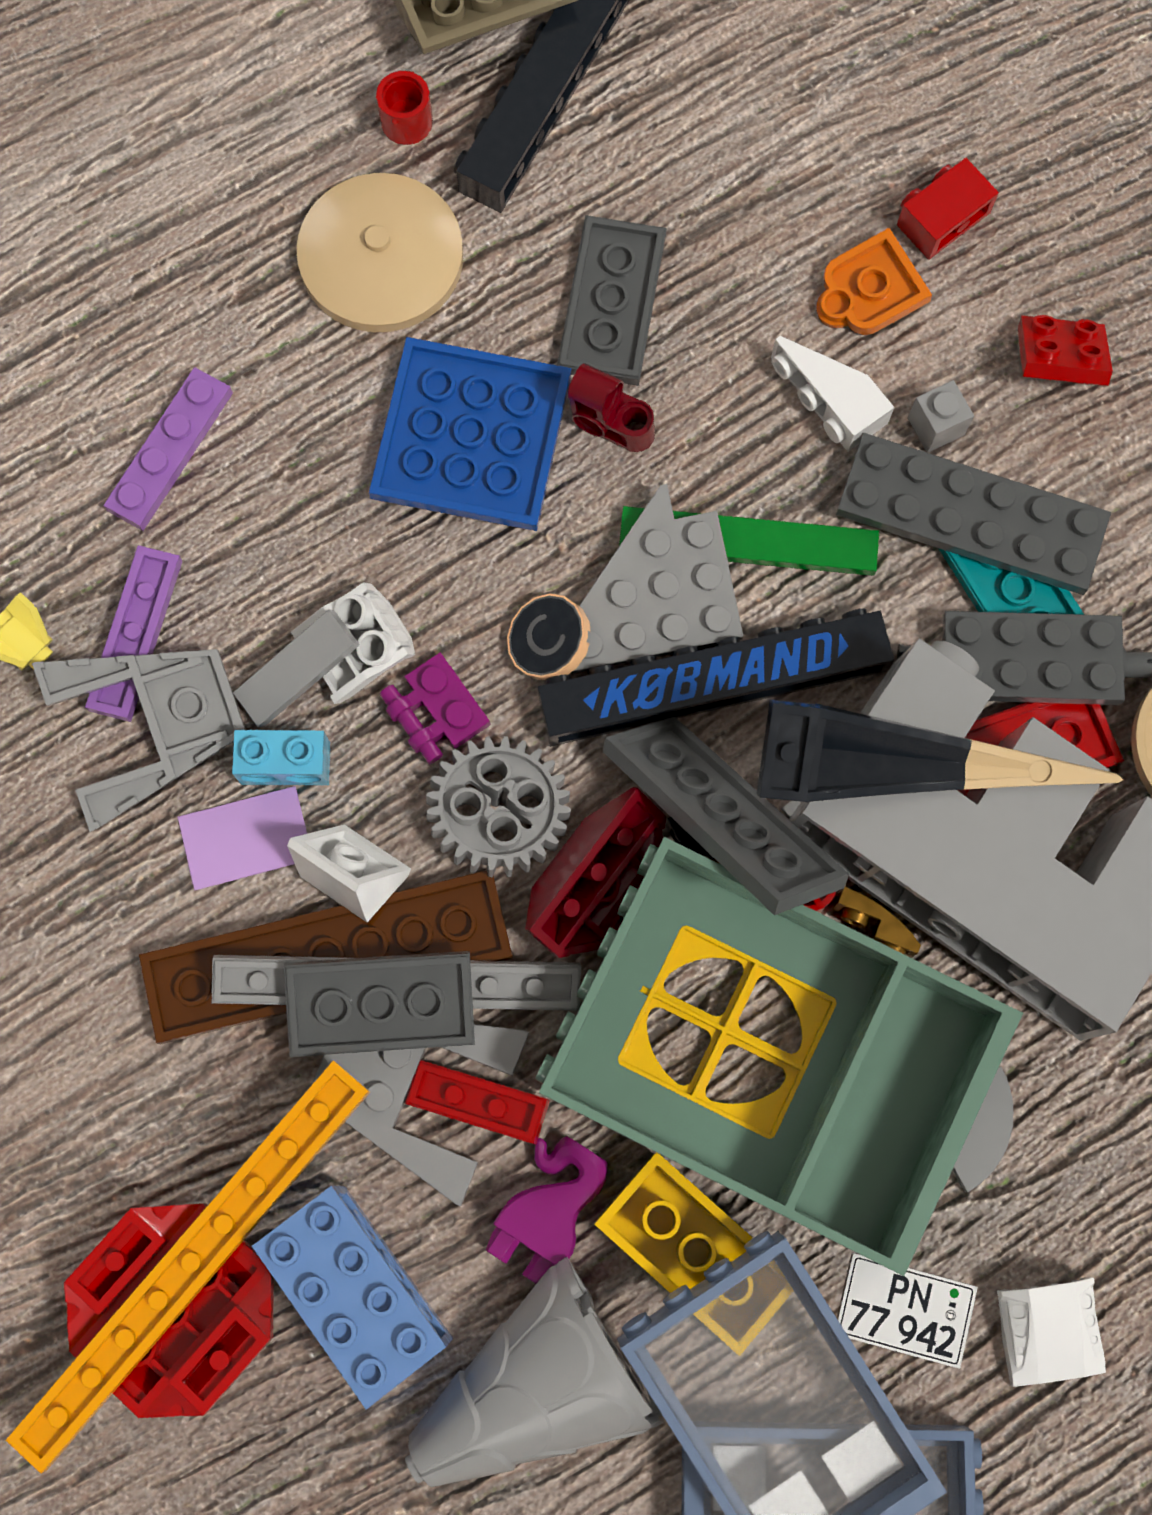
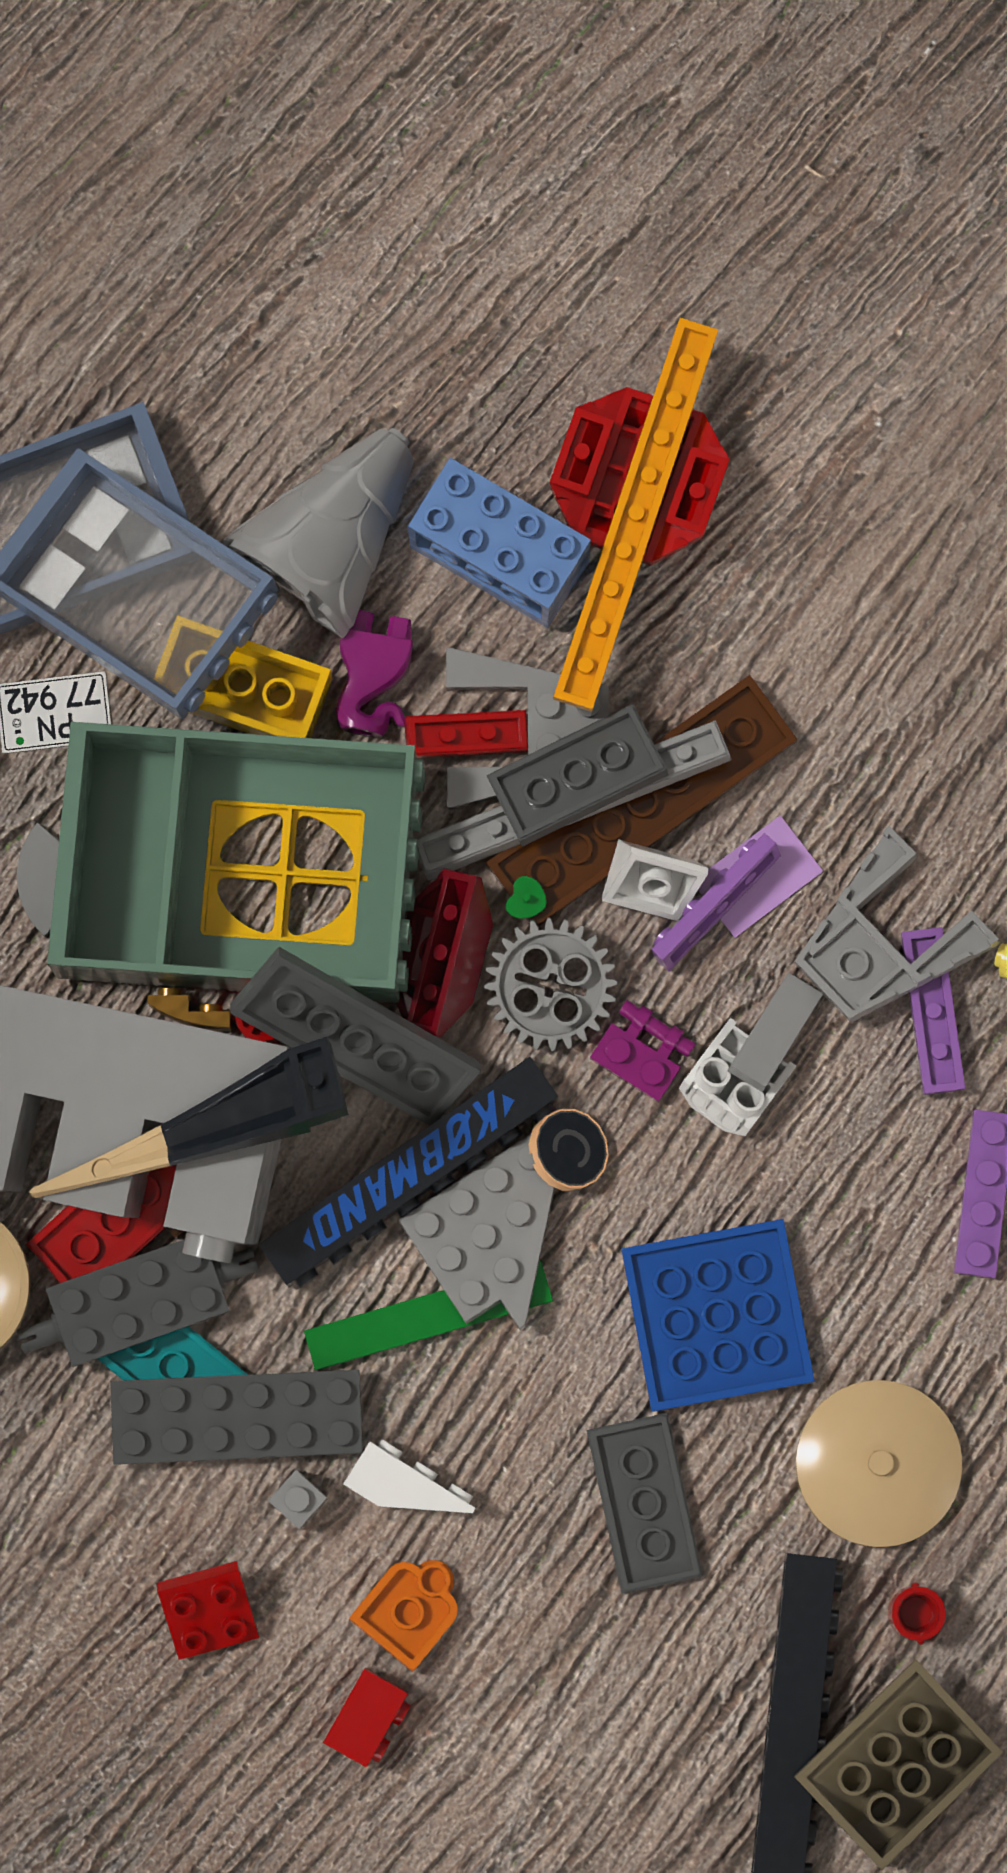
camera: 160 degrees right, 5 degrees up
(278, 832) = (725, 891): none -> medium lavender plate
(281, 757) = (753, 950): medium azure brick -> none
(486, 898) = (527, 899): none -> green piece
(605, 410) = (601, 1383): dark red piece -> none

